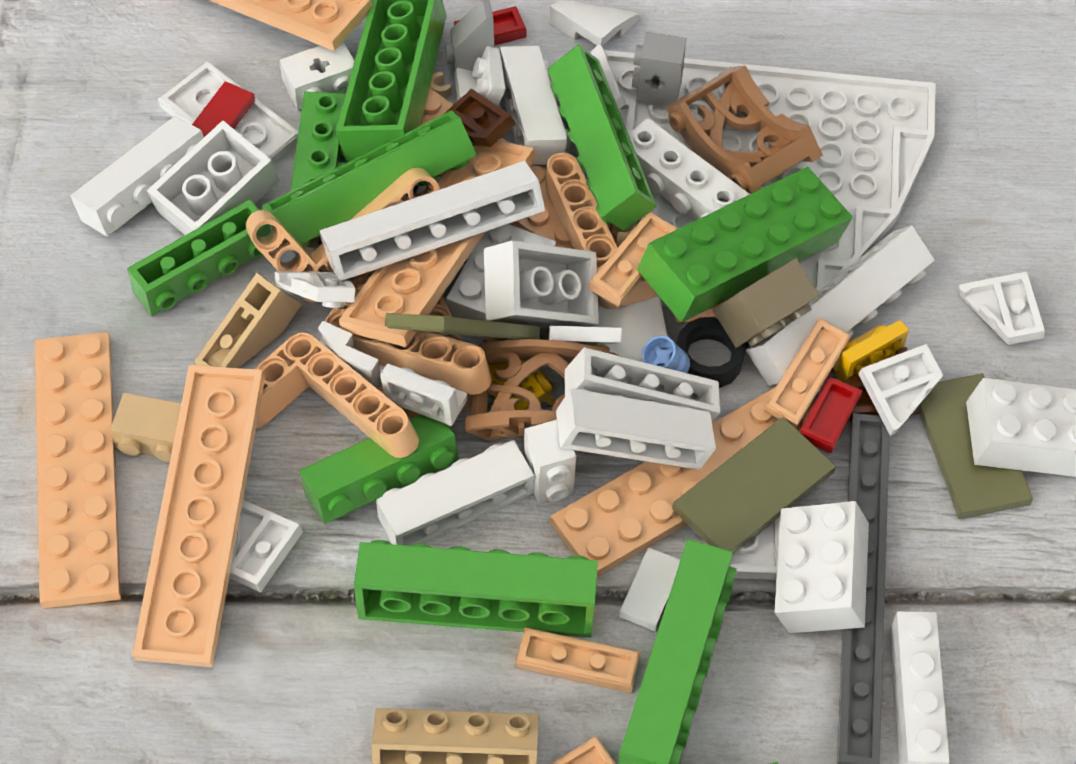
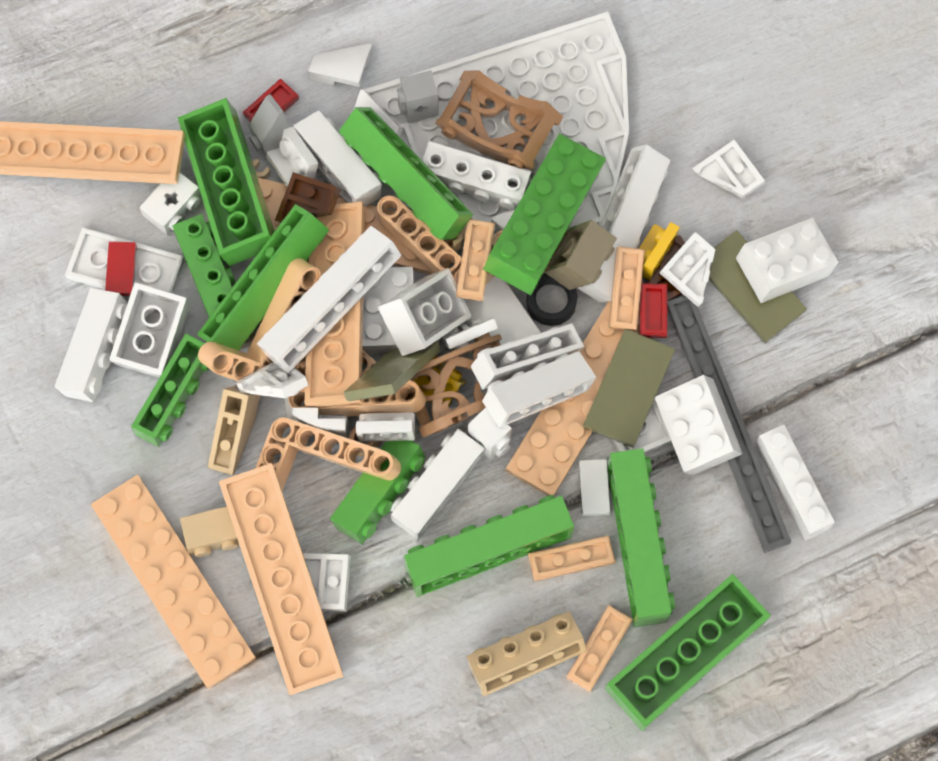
camera: 25 degrees left, 15 degrees up
(665, 353) = (524, 321): light blue wheel -> none

